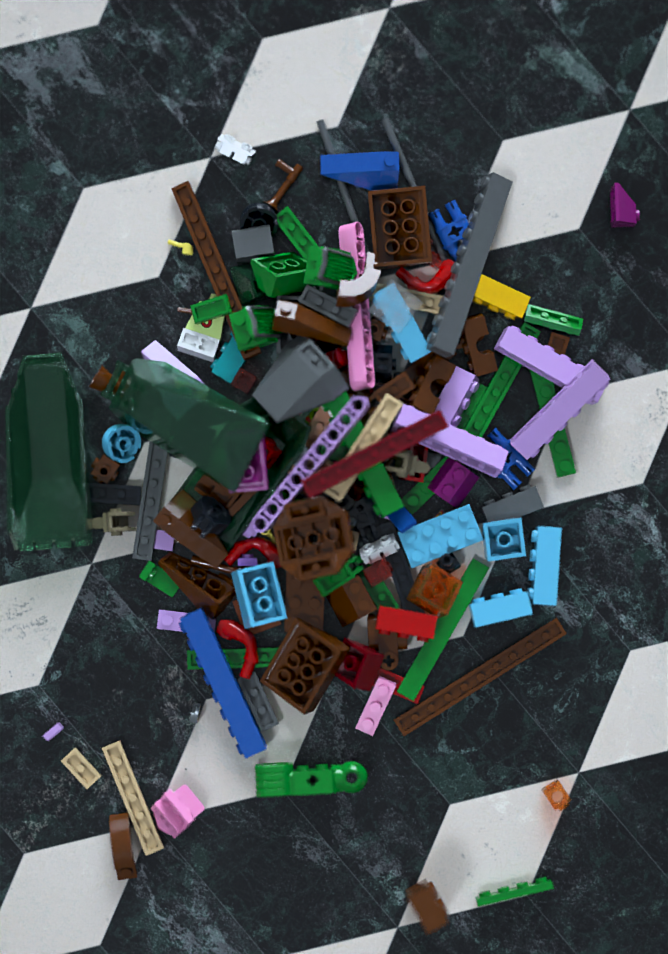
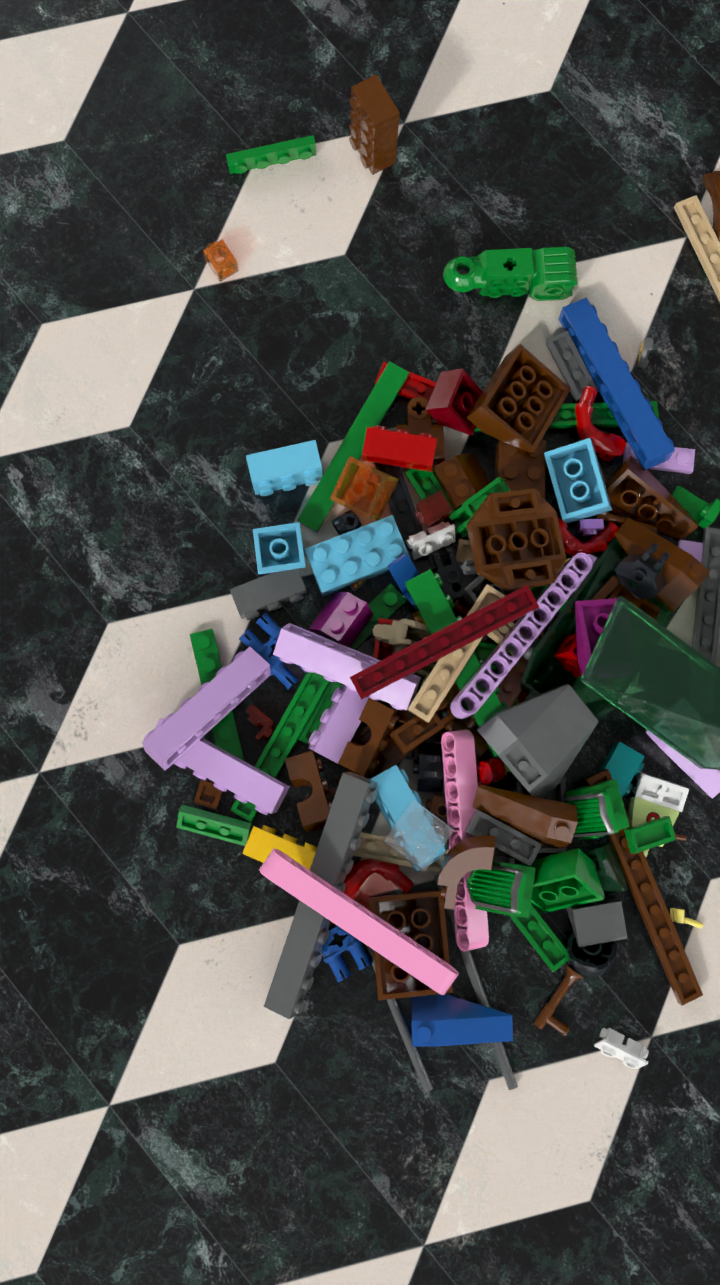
camera: 175 degrees right, 5 degrees down
(176, 810) = (660, 244): bright pink piece -> none
(244, 381) = (602, 744): clear red brick -> none
(376, 705) = (432, 360): bright pink plate -> none
(441, 243) = (358, 921): none -> bright pink beam
(480, 676) = (308, 394): reddish brown plate -> none
(518, 404) = (259, 718): none -> clear red bracket
(545, 565) = (229, 517): medium azure brick -> none
(622, 208) = (121, 972): magenta slope -> none

